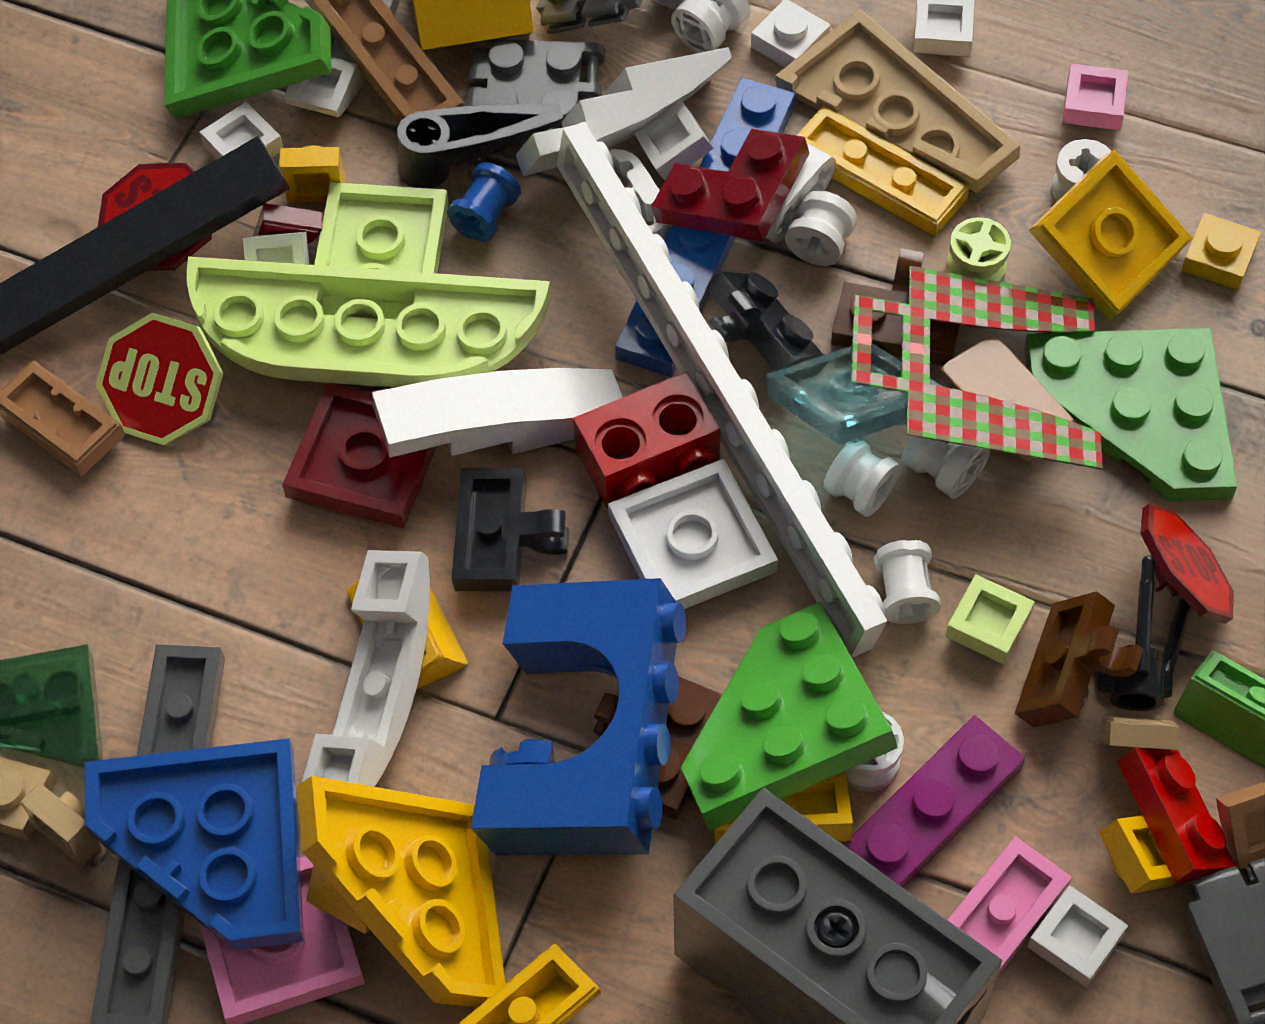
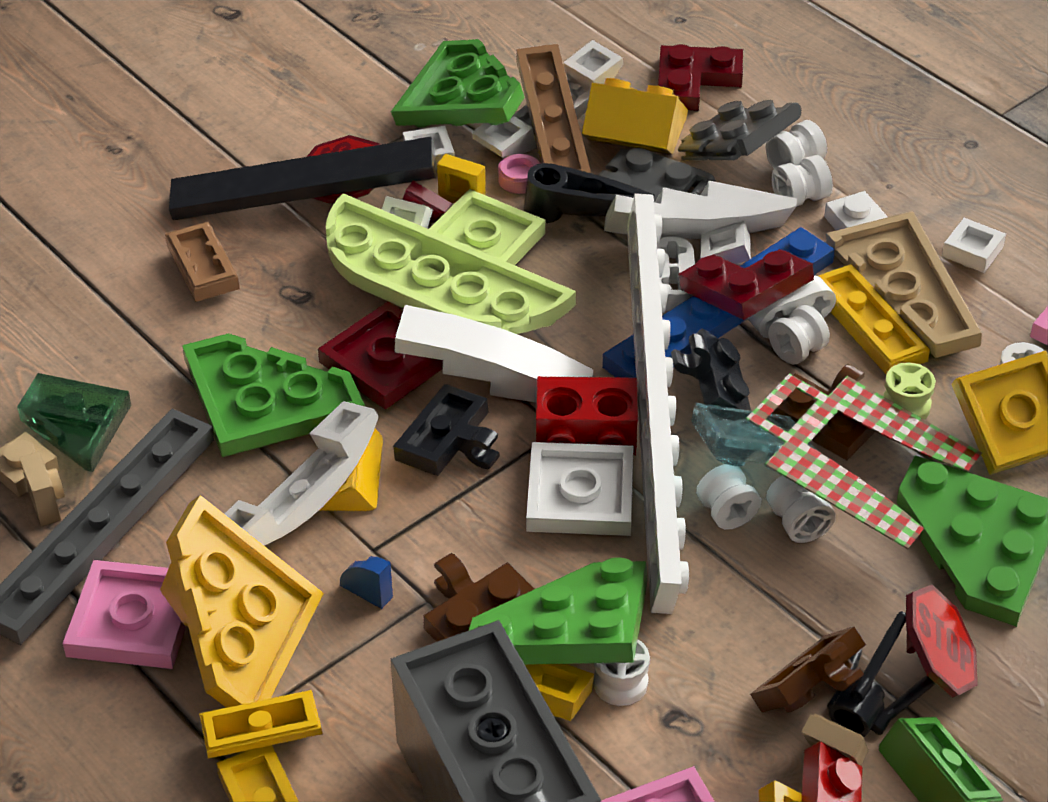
camera: 25 degrees right, 15 degrees down
(159, 378) = (280, 260): piece -> none
(209, 834) = (121, 523): blue plate -> none
(249, 572) = (262, 395): none -> bright green plate
(368, 130) = (514, 172): none -> bright pink tile
(484, 202) = (567, 237): blue bush -> none
(610, 792) = (412, 606): blue arch -> none
(907, 581) = (717, 581): white bush -> none
(937, 802) = (650, 728): magenta plate -> none
(989, 619) = (768, 623): yellowish green plate -> none
(997, 373) = (877, 468): slope -> none

